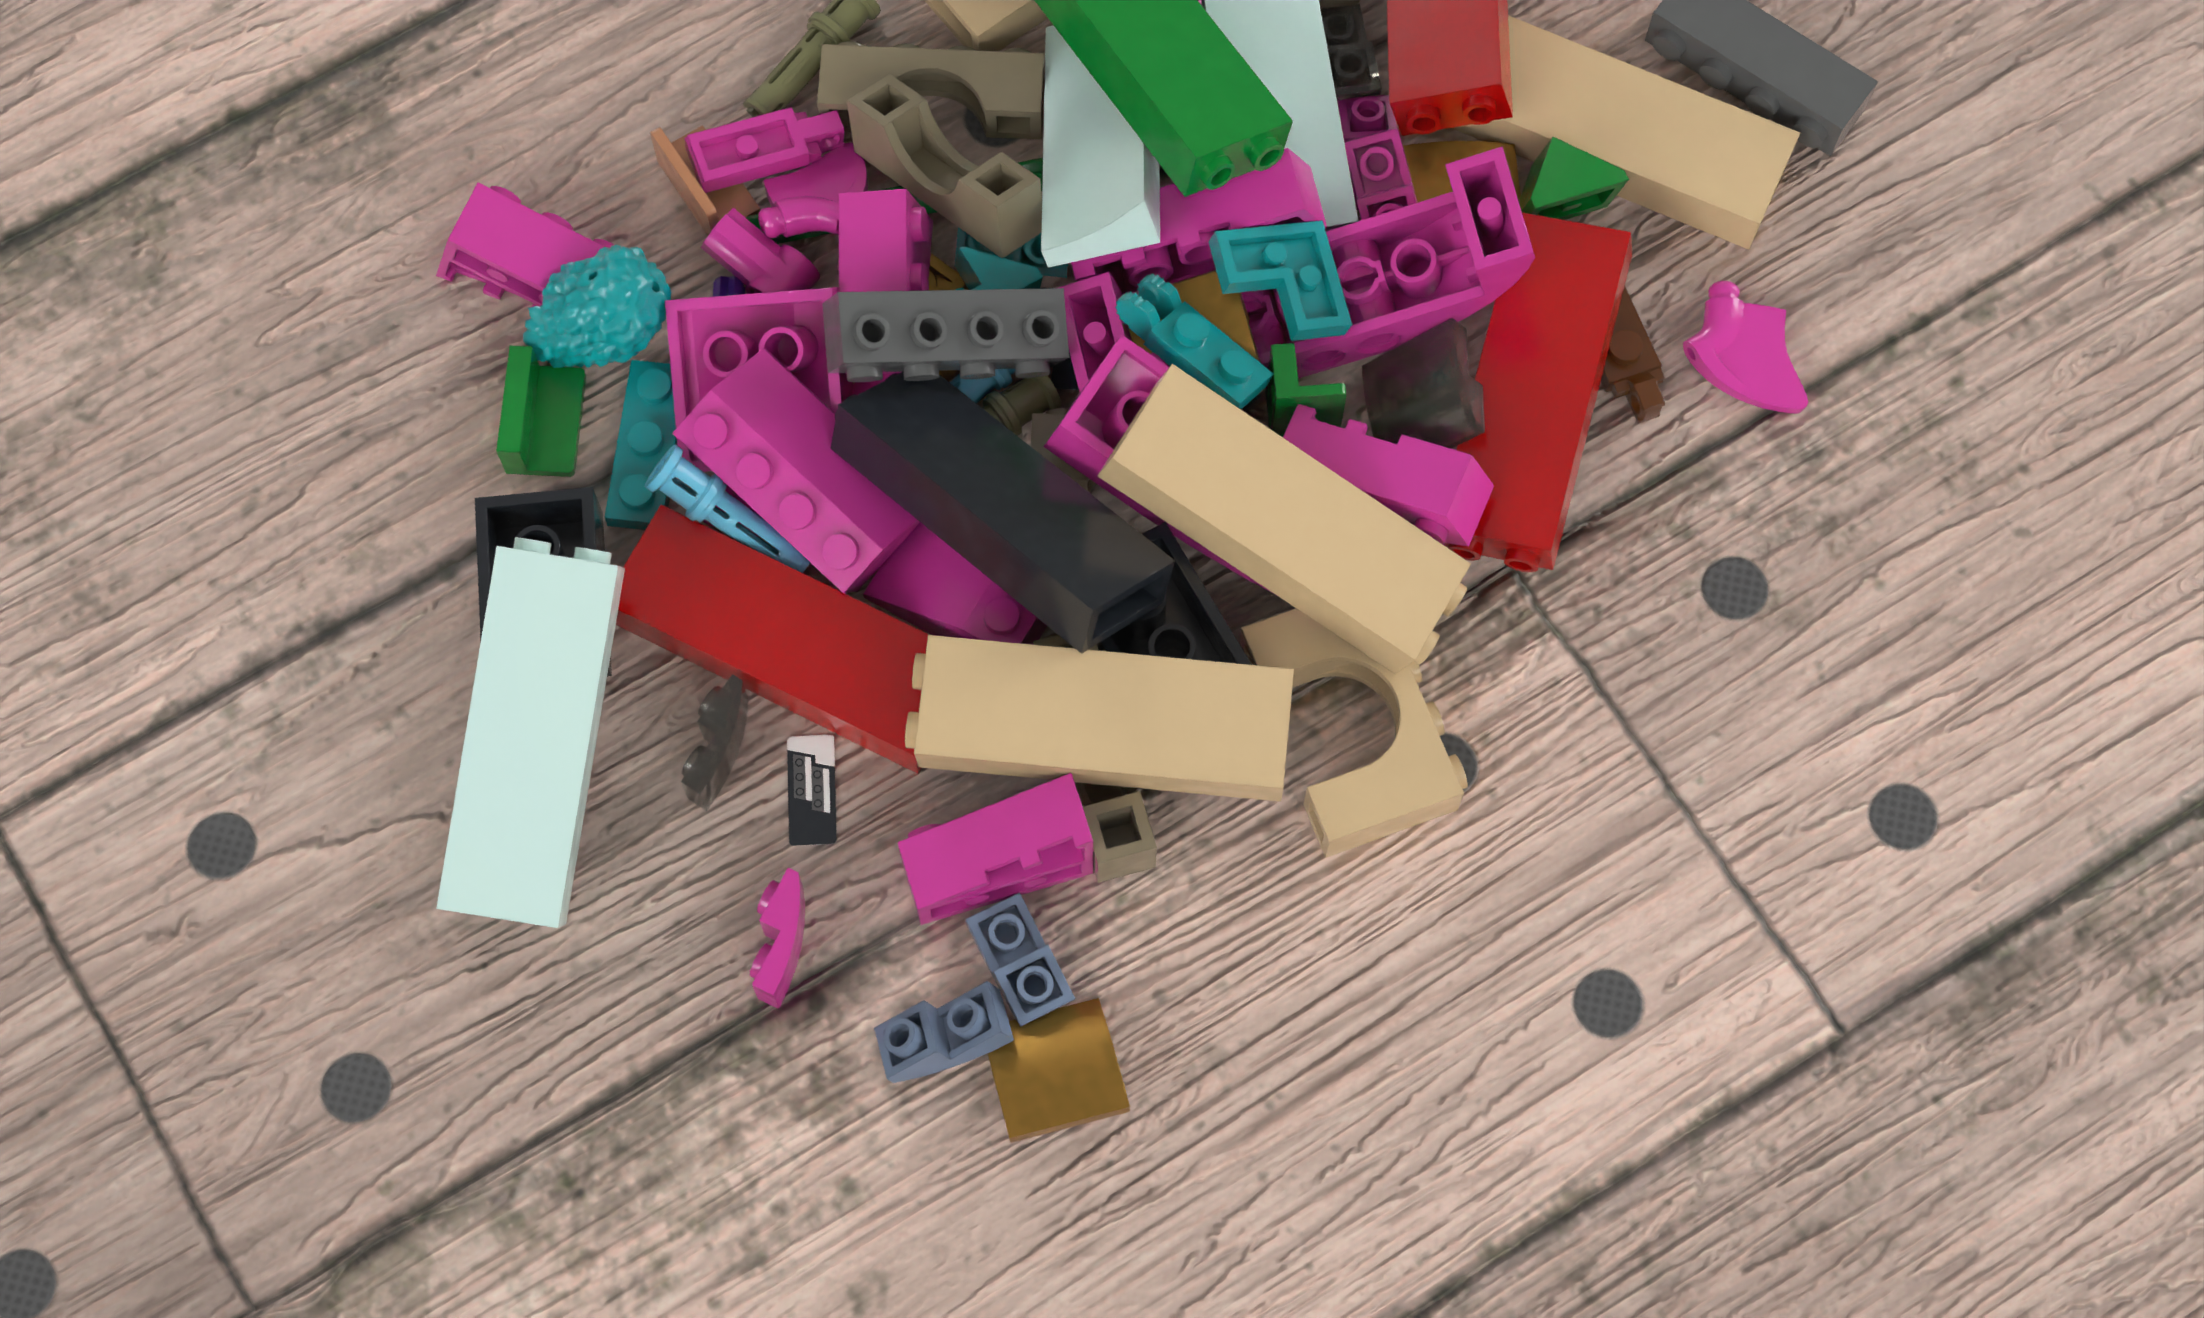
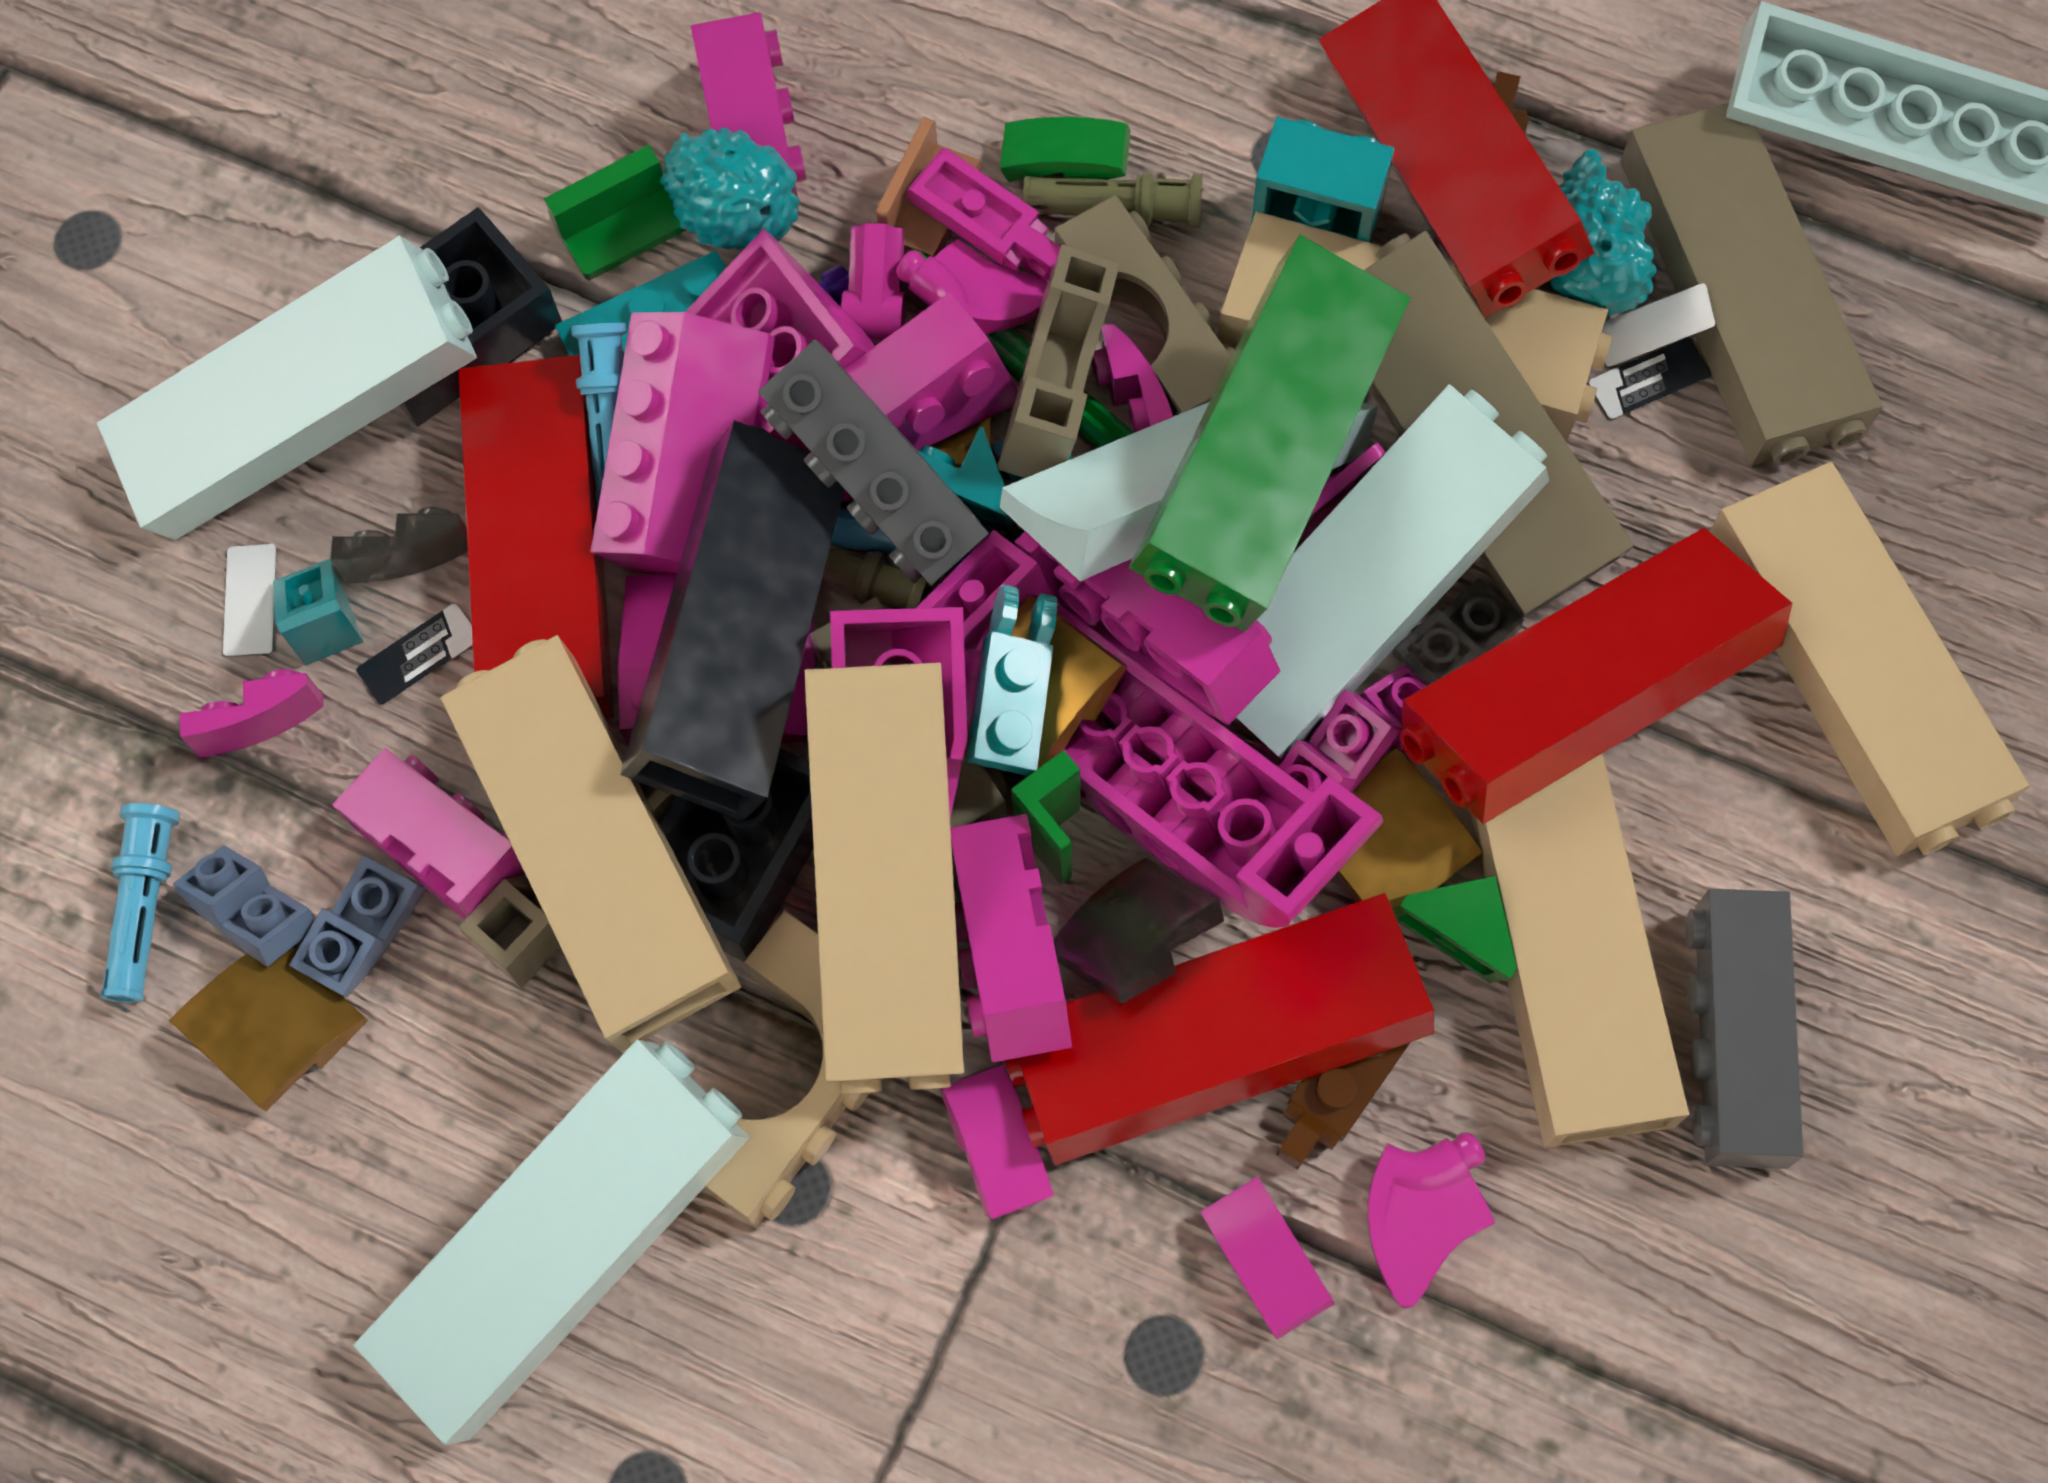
camera: 60 degrees right, 0 degrees up
(665, 894) = (249, 600): none -> white sticker
(720, 839) = (315, 612): none -> teal slope
(740, 58) = (1067, 145): none -> green slope
(856, 1101) = (140, 873): none -> medium azure pin
(983, 130) = (1129, 379): none -> dark pink slope
(1294, 262) = (1160, 714): teal plate -> none
(1392, 937) = (552, 1240): none -> light aqua brick
(1517, 595) = (996, 1141): none -> dark pink slope
(1716, 468) = (1267, 1258): none -> dark pink slope

